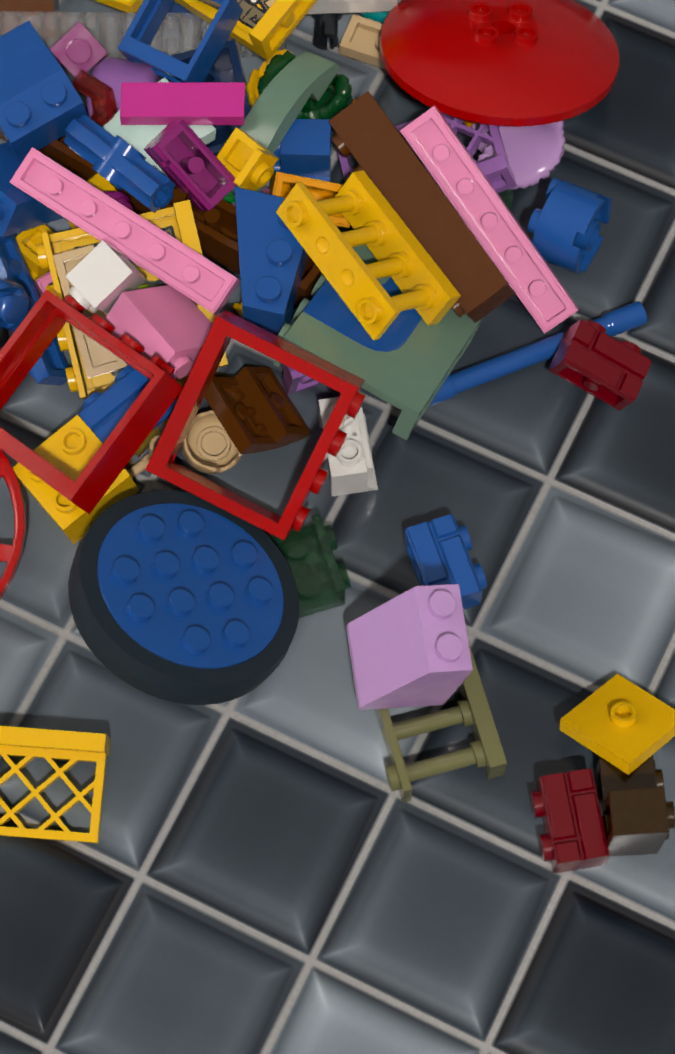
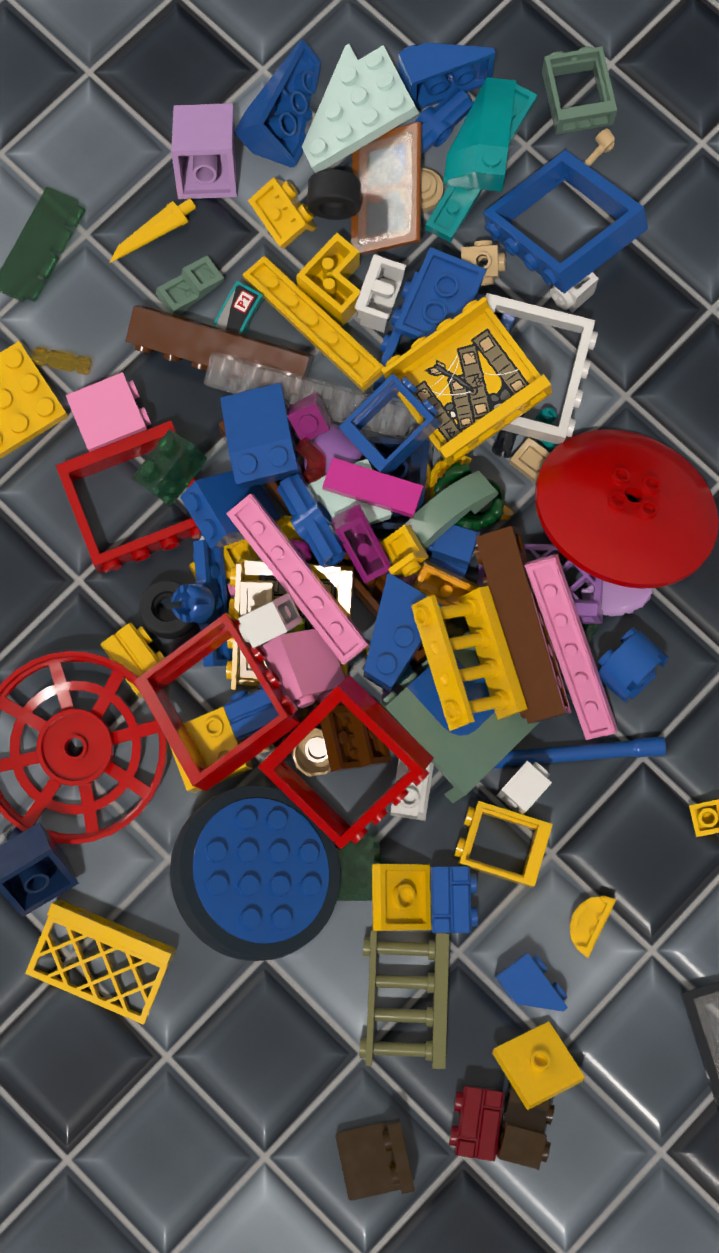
camera: 20 degrees right, 10 degrees up
(373, 569) = (401, 897): none -> yellow plate
(410, 649) = (400, 971): lavender slope -> none
(457, 909) = (374, 1160): none -> dark brown bracket
(488, 402) = (525, 787): none -> white brick
(488, 446) = (535, 853): none -> yellow window
(578, 637) = (528, 986): none -> blue slope
(600, 364) = (617, 782): dark red brick -> none
(624, 541) = (588, 922): none -> yellow plate

